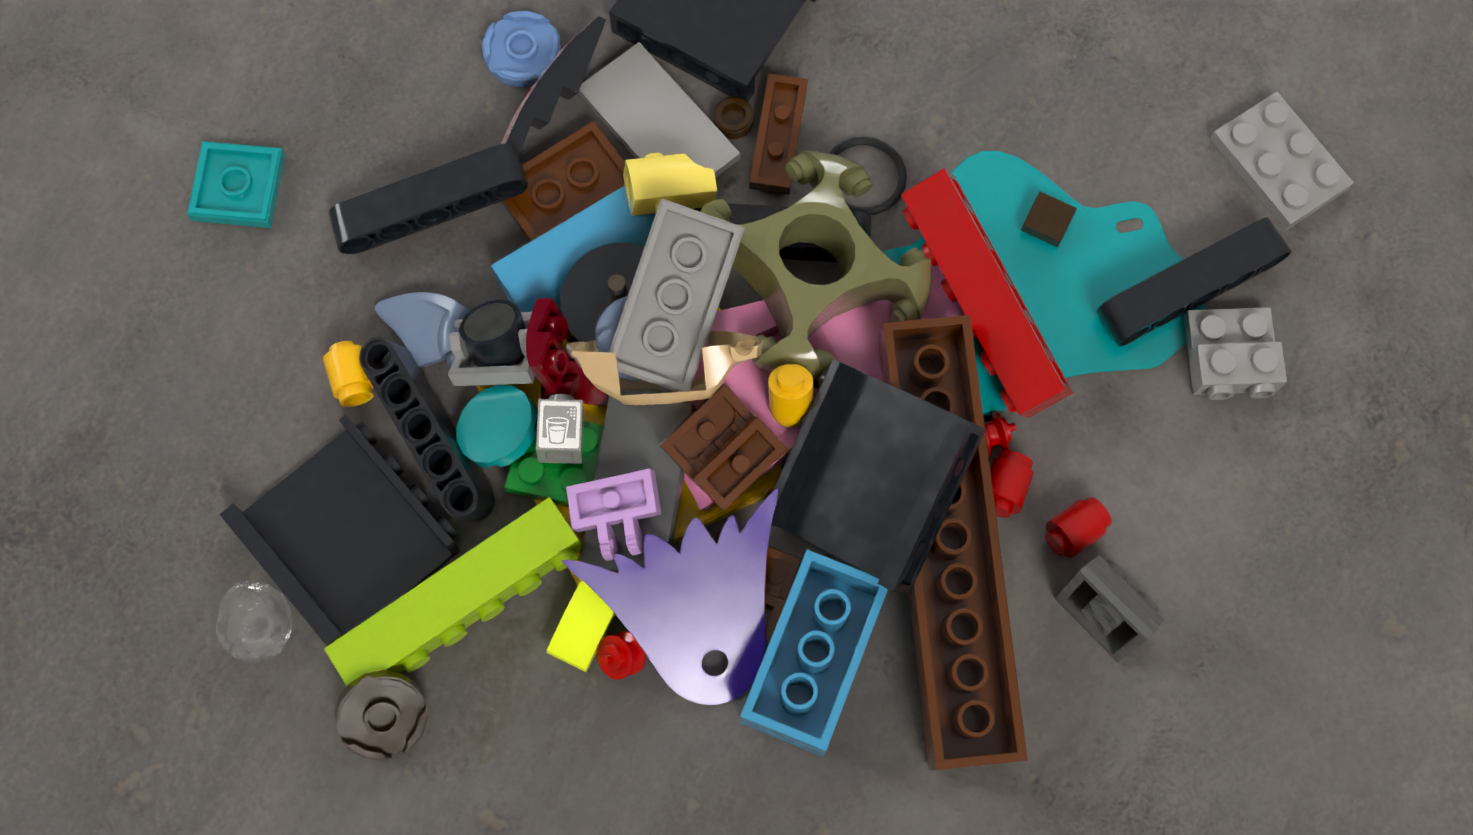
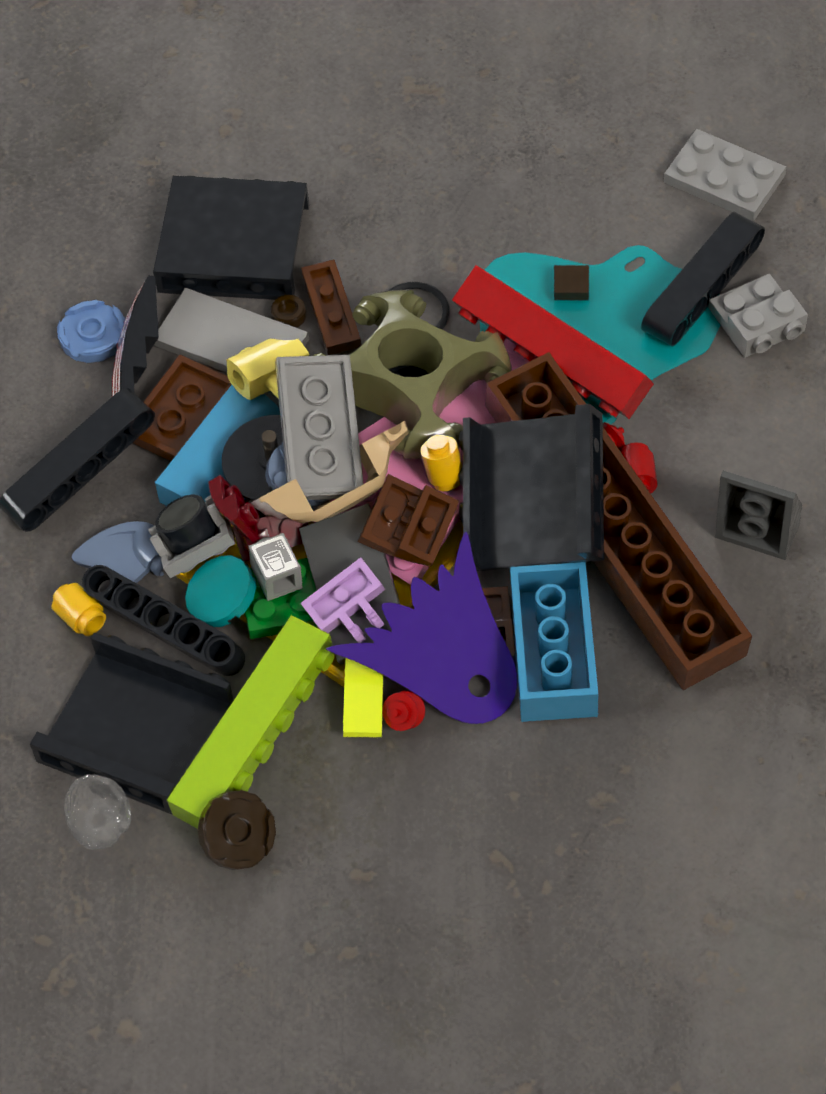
camera: 20 degrees left, 15 degrees down
(1077, 527) = (703, 478): red brick -> none

